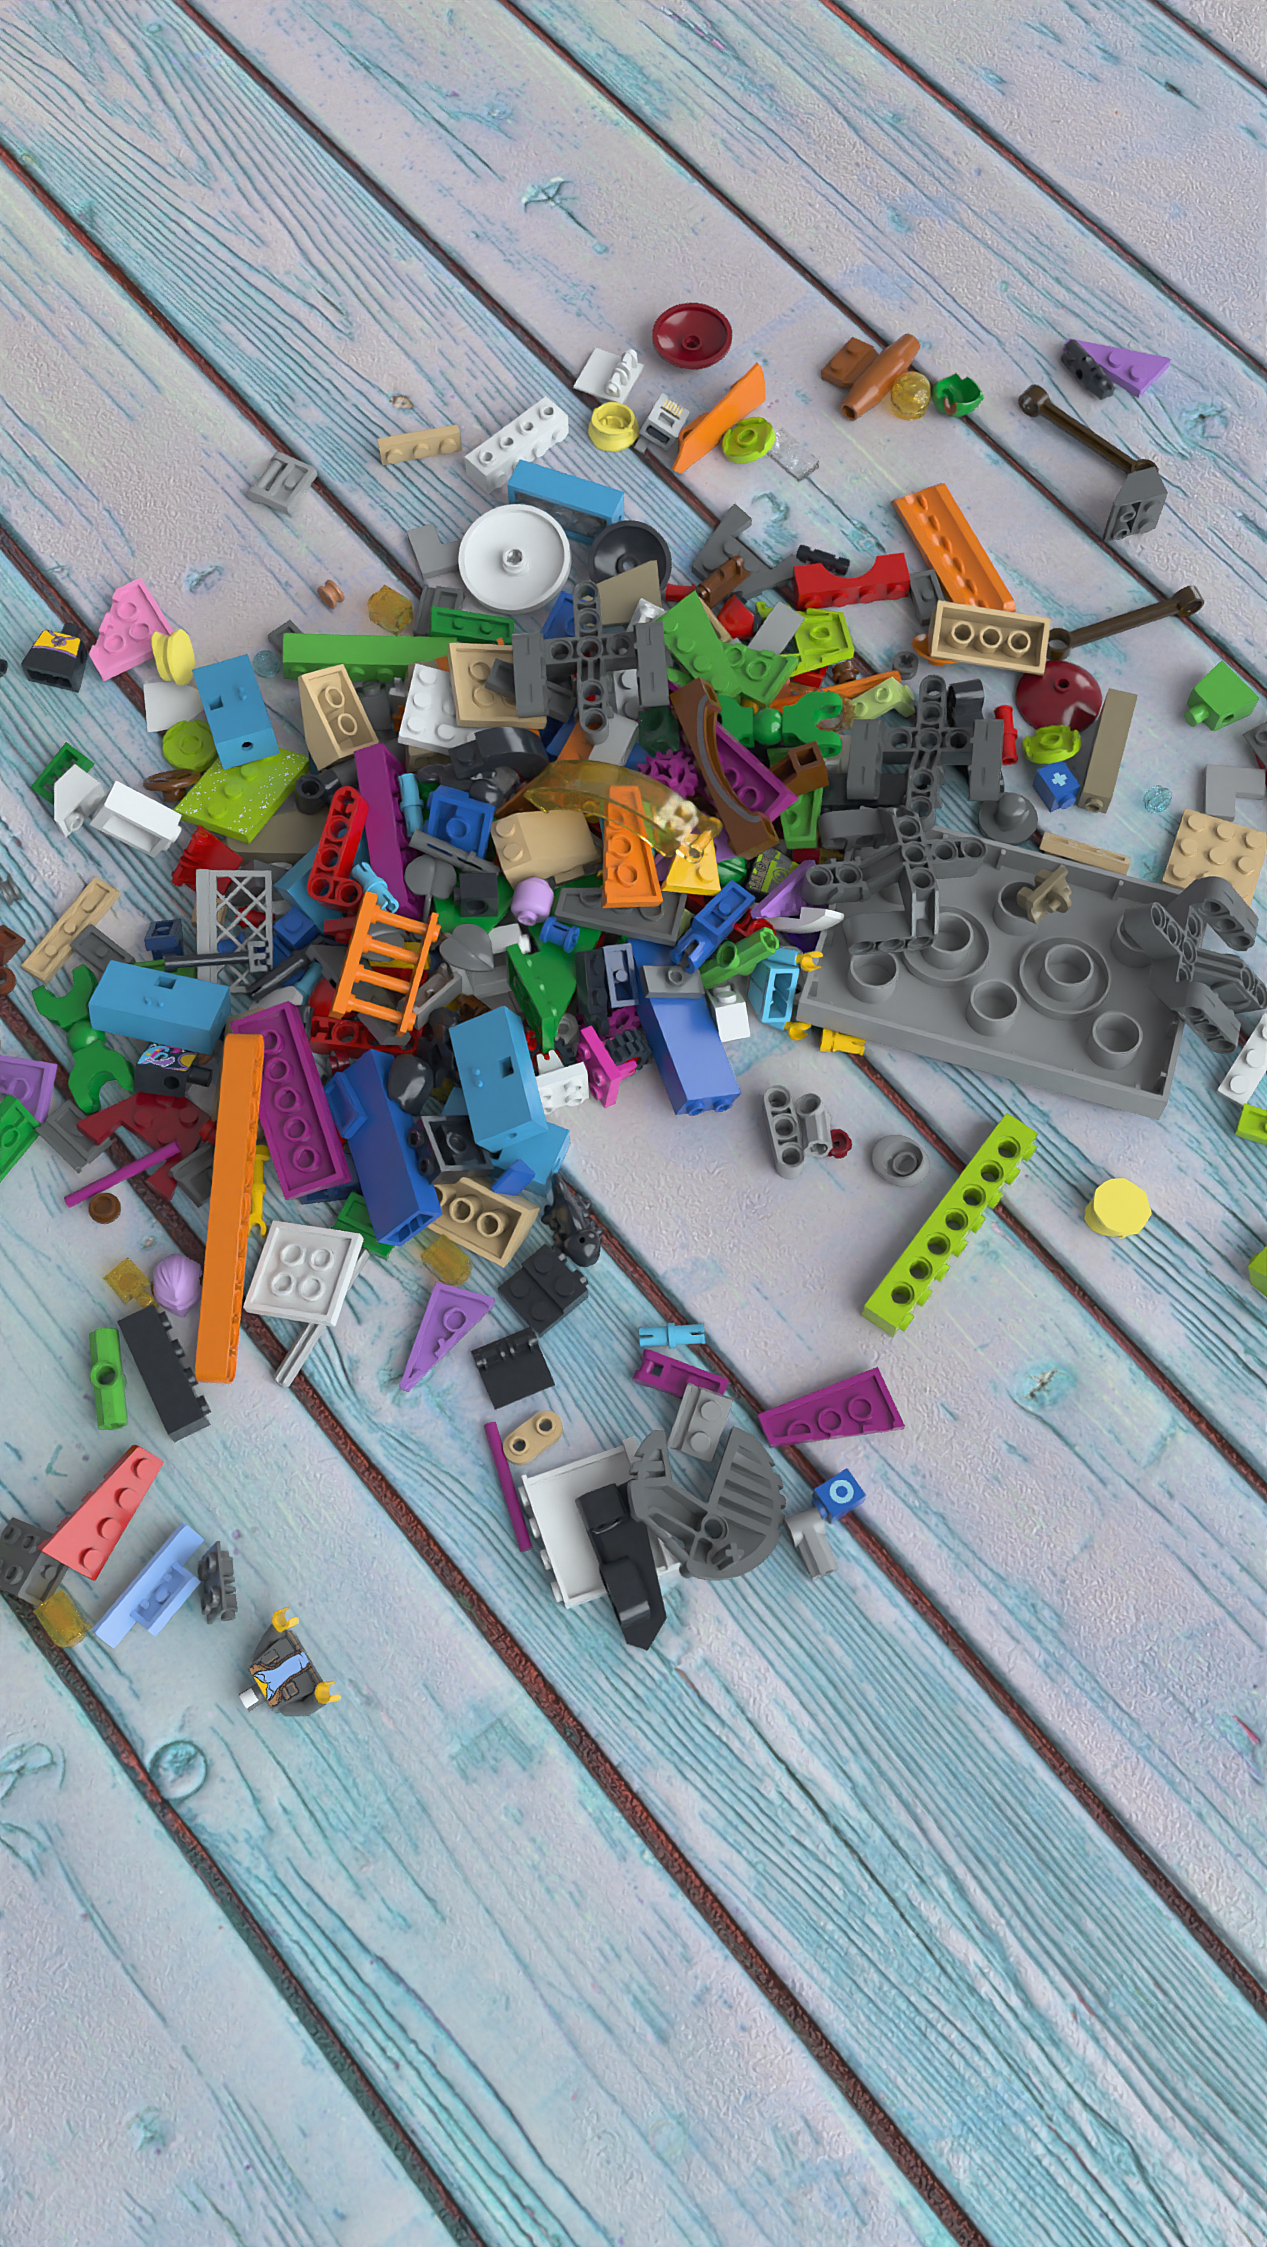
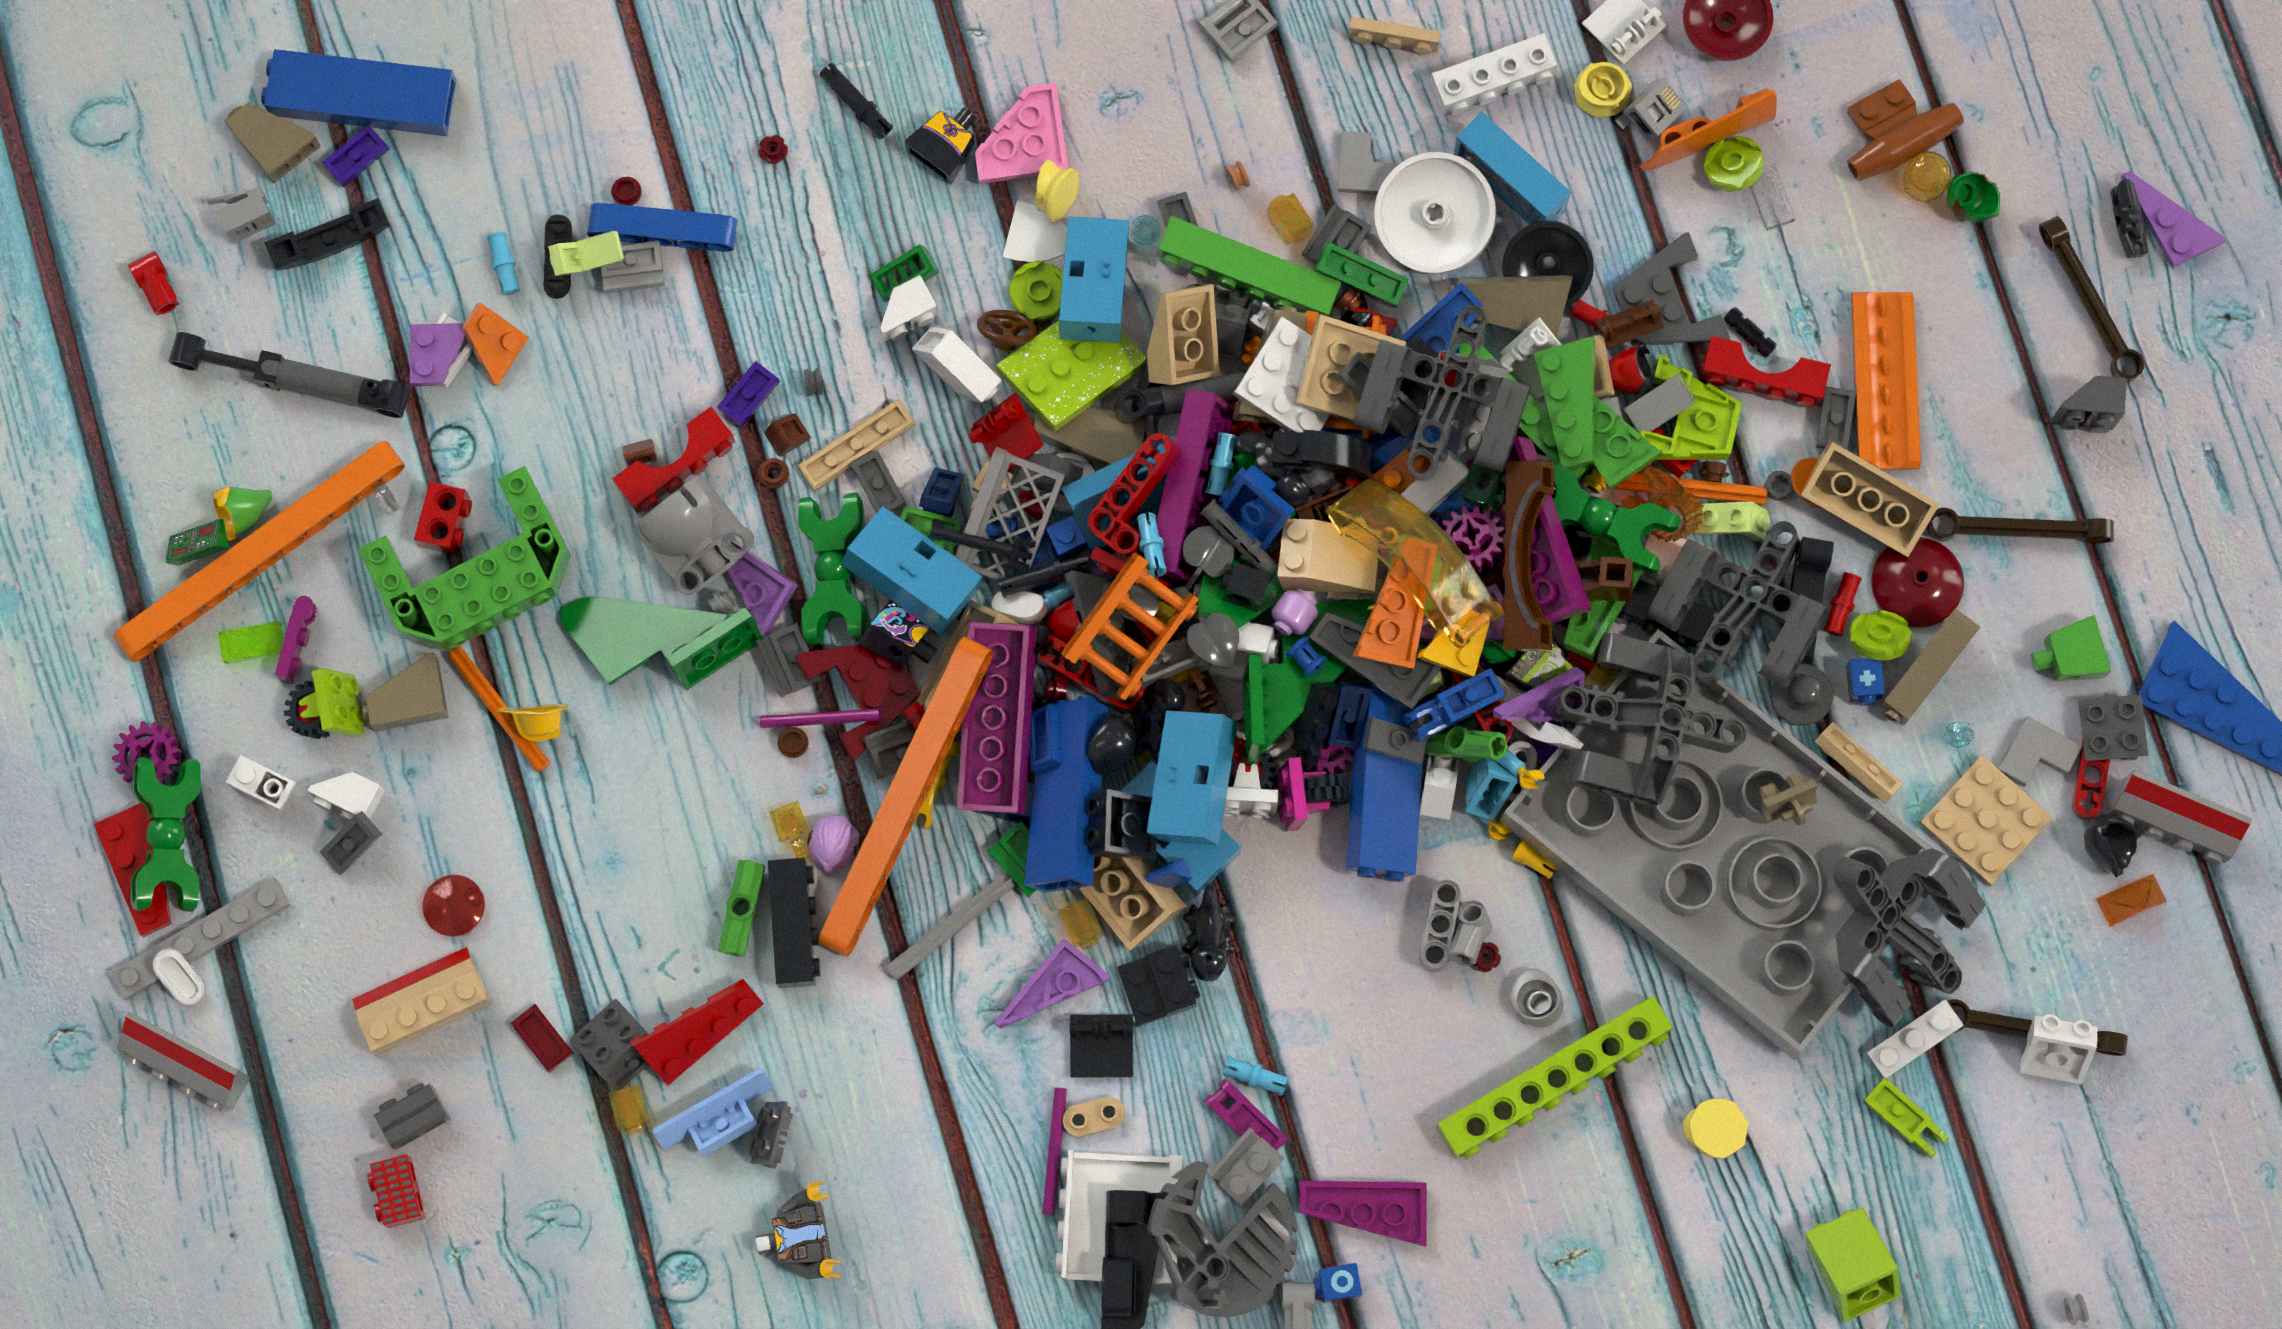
camera: 25 degrees right, 10 degrees up
(303, 1273) = (948, 881): white plate -> none

